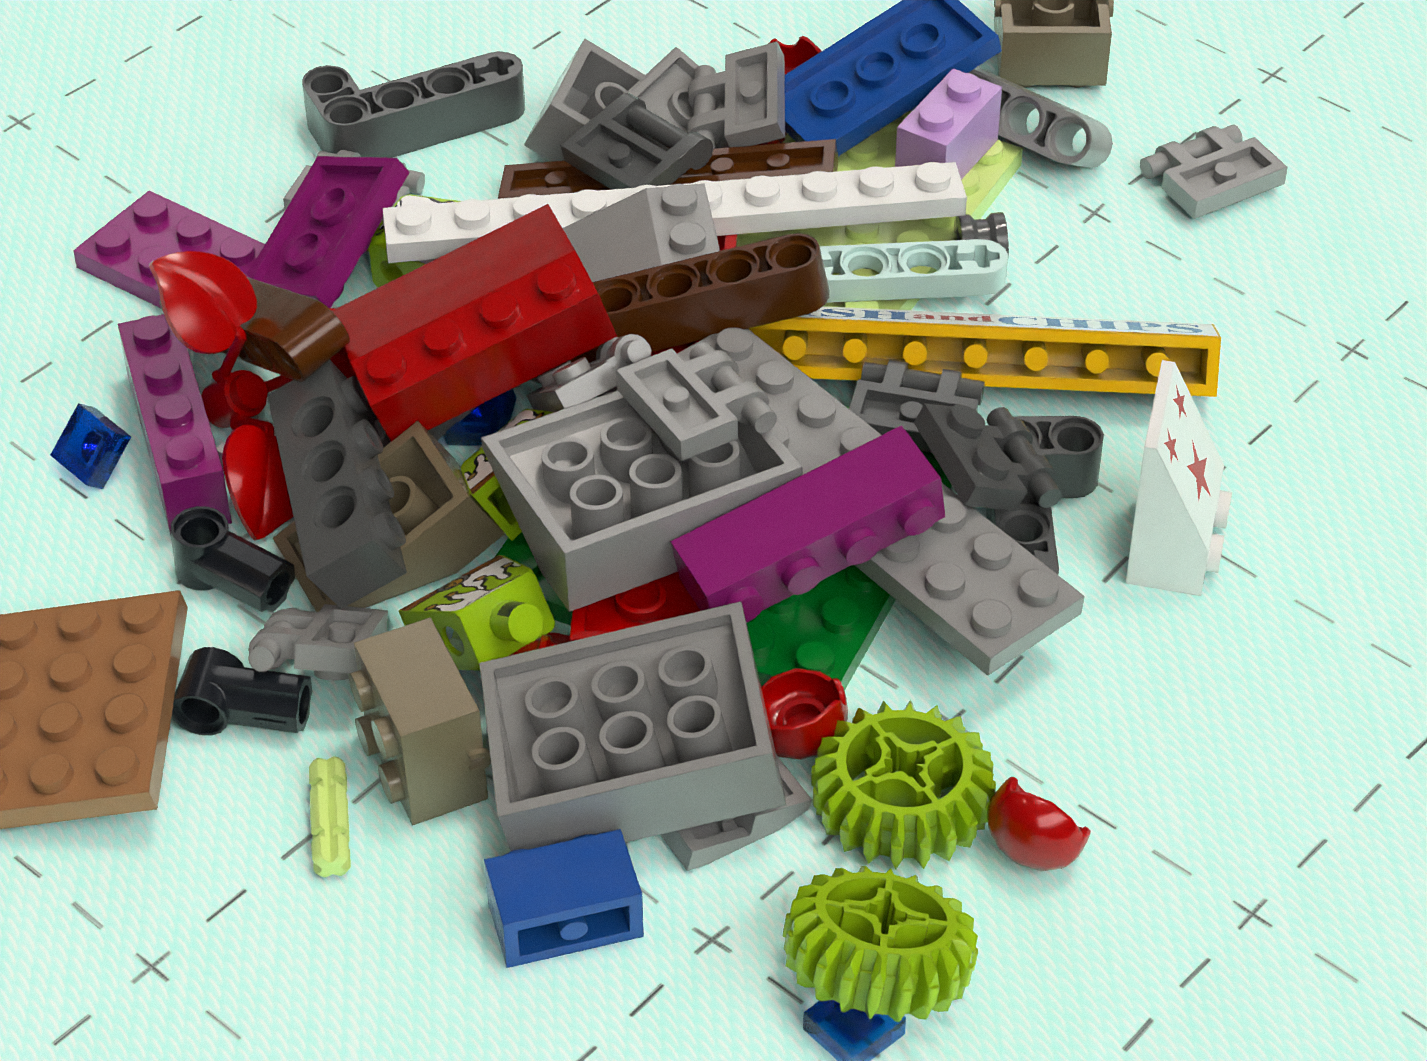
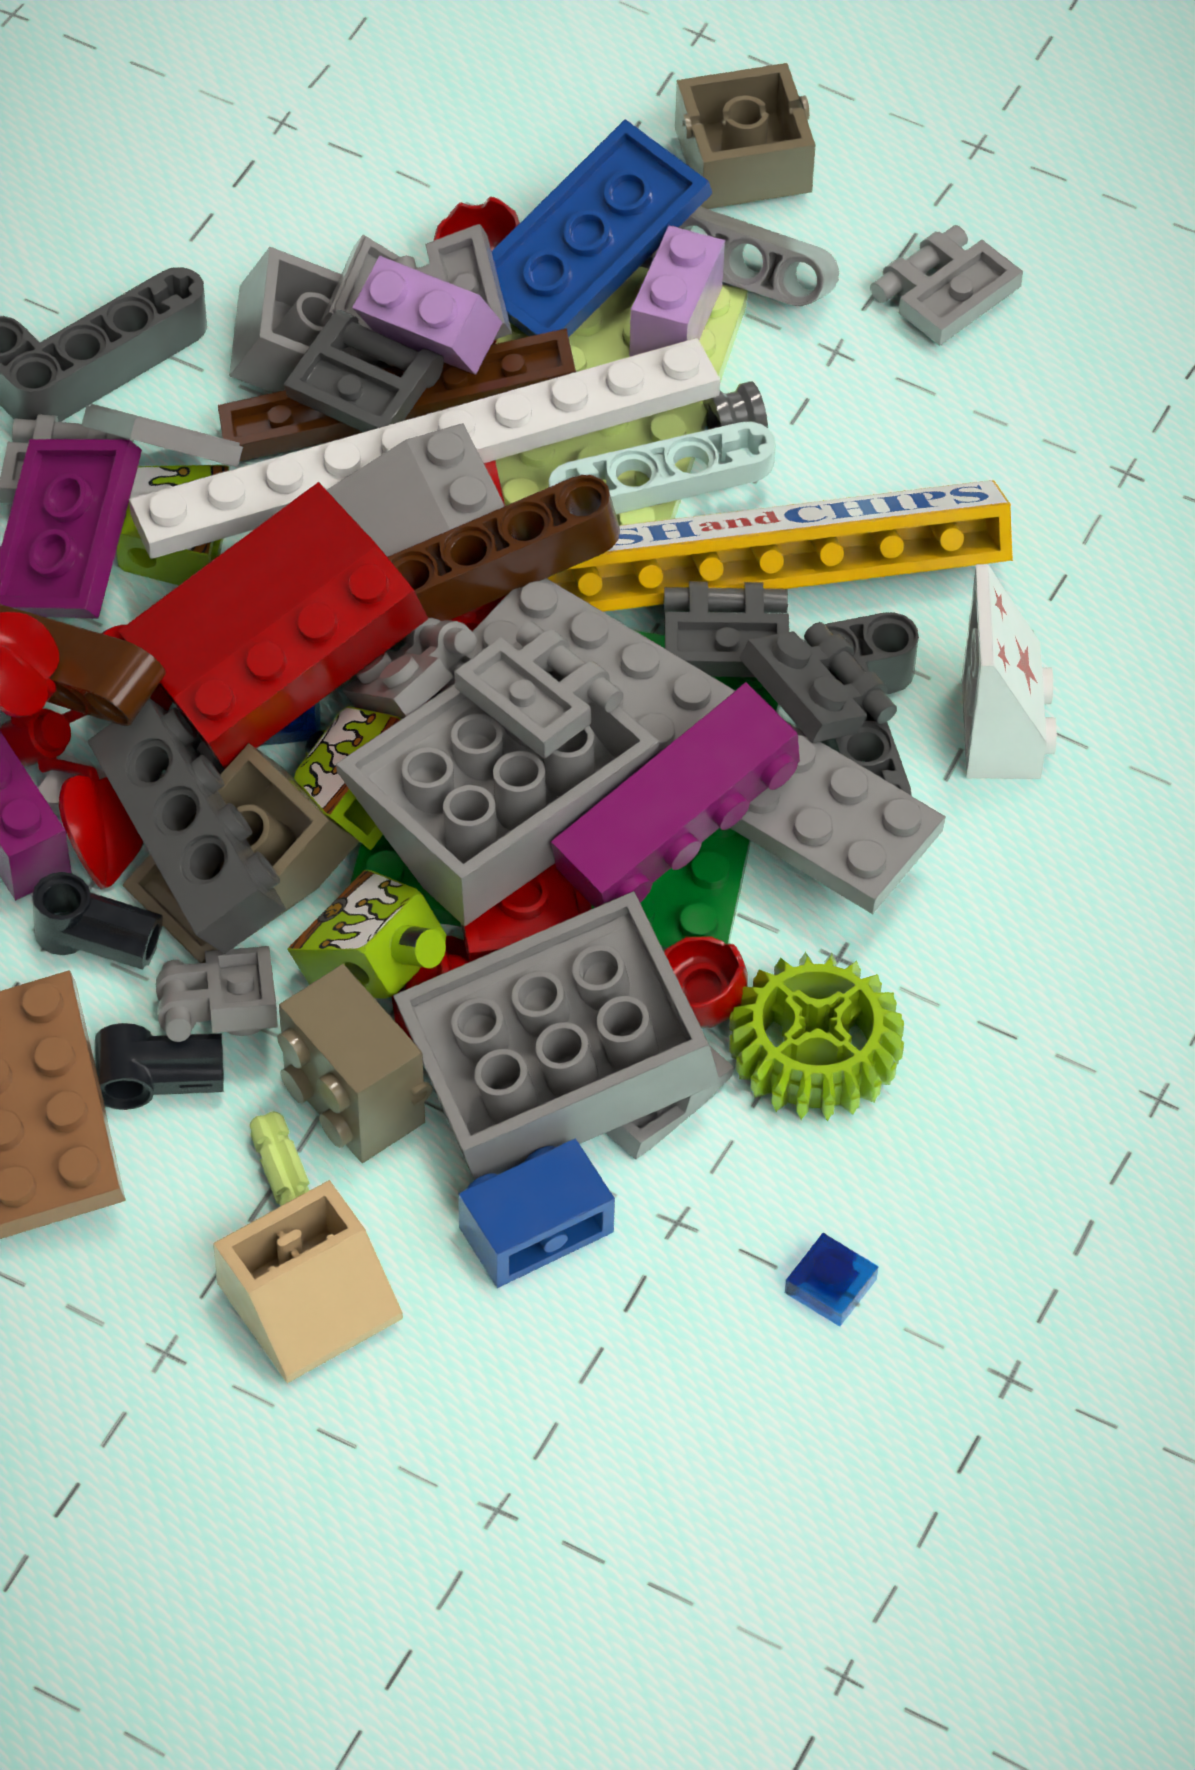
camera: 15 degrees left, 10 degrees up
(305, 917) = (306, 1281): none -> tan slope
(438, 169) = (162, 434): none -> light grey tile
(706, 101) = (427, 314): none -> lavender brick
(880, 943) = (842, 1202): lime gear -> none
(1033, 829) = (948, 1061): red hair -> none

